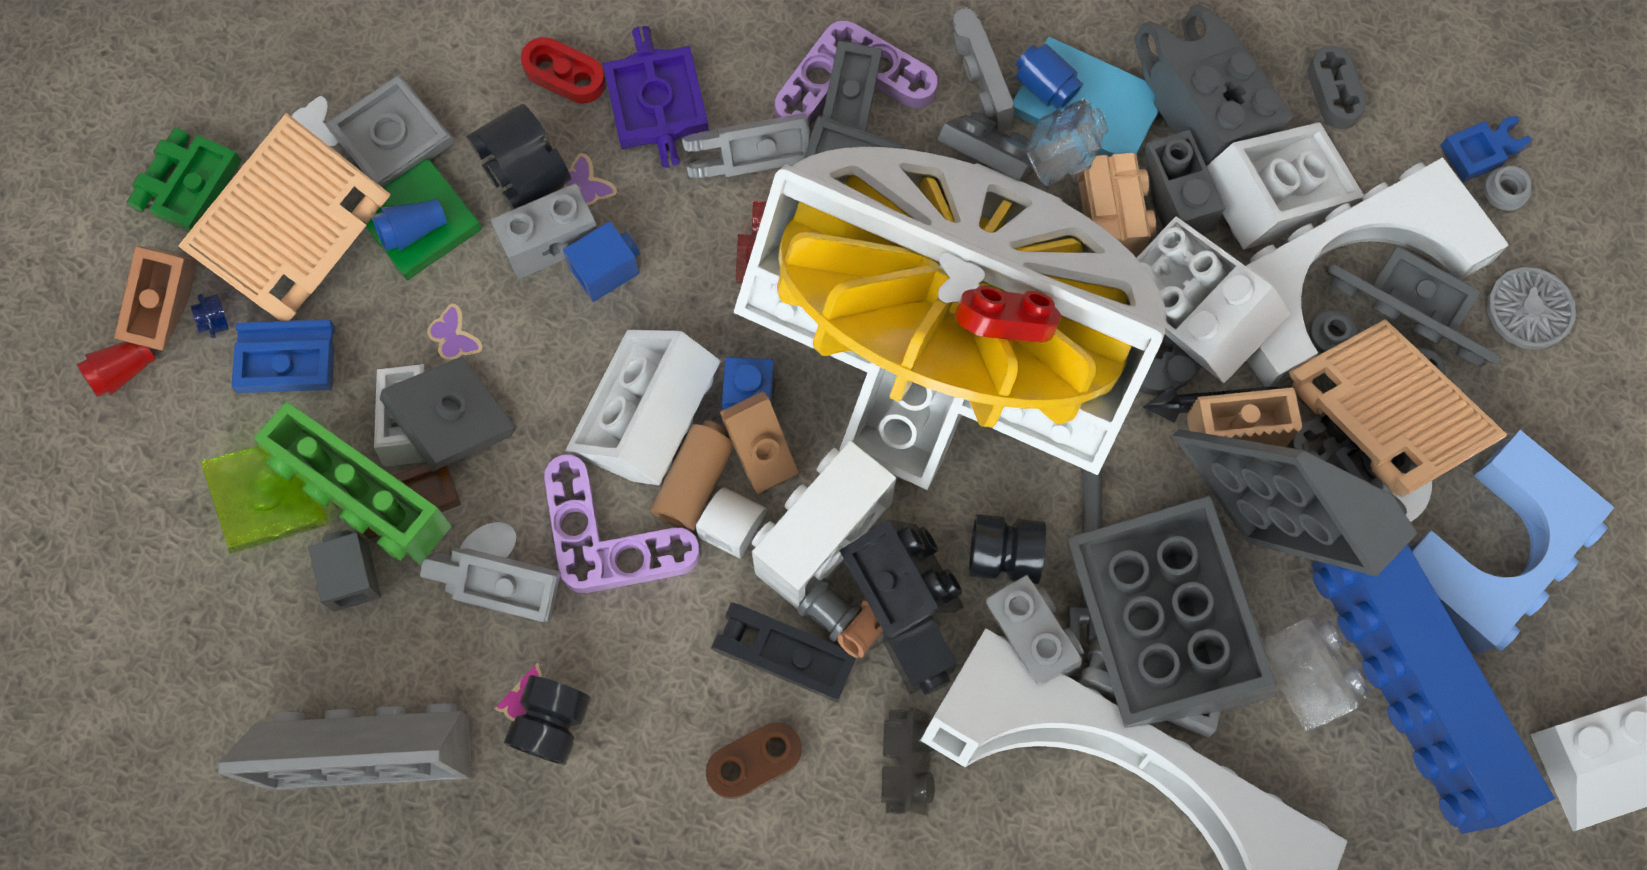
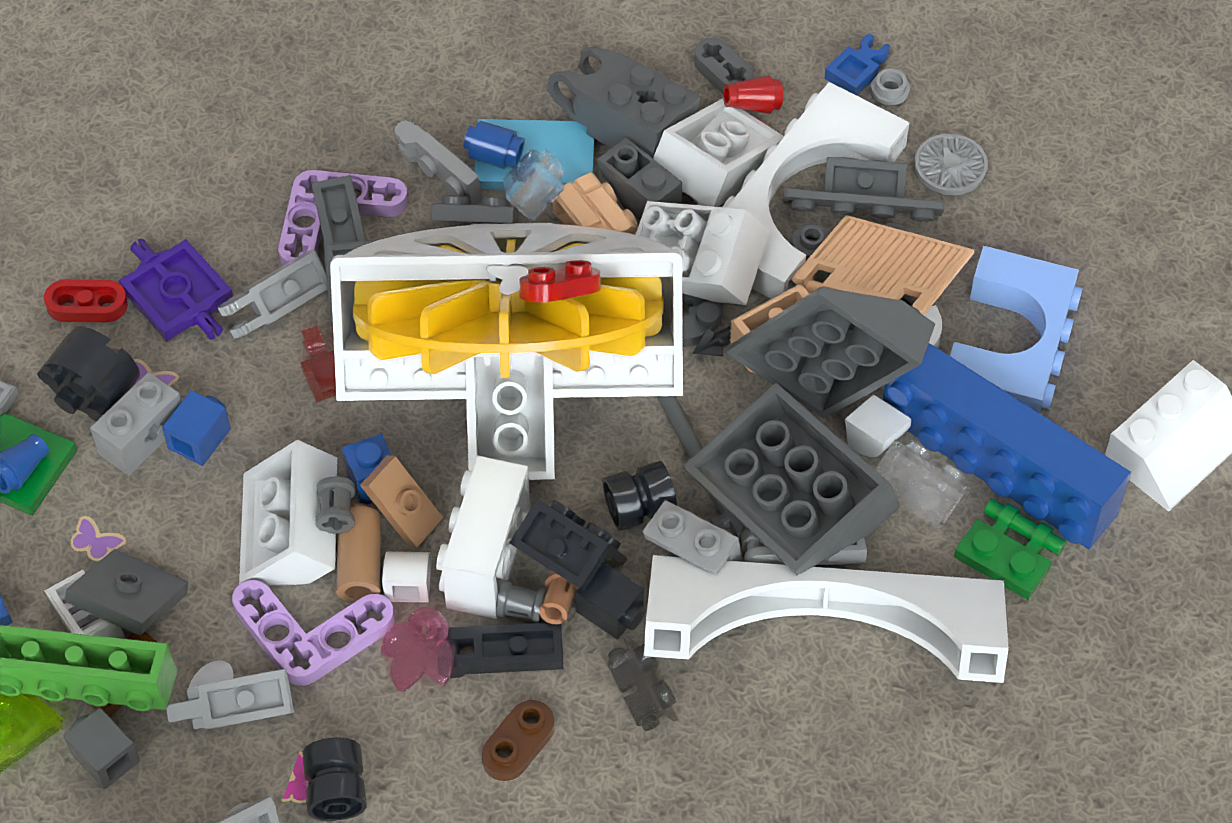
camera: 25 degrees left, 15 degrees down
(686, 420) = (335, 504): none -> dark grey bush
(699, 616) = (418, 652): none -> clear pink plate
(1296, 589) = (875, 427): none -> white brick
(1355, 135) = (754, 95): none -> red cone
(1361, 800) = (1002, 557): none -> green plate

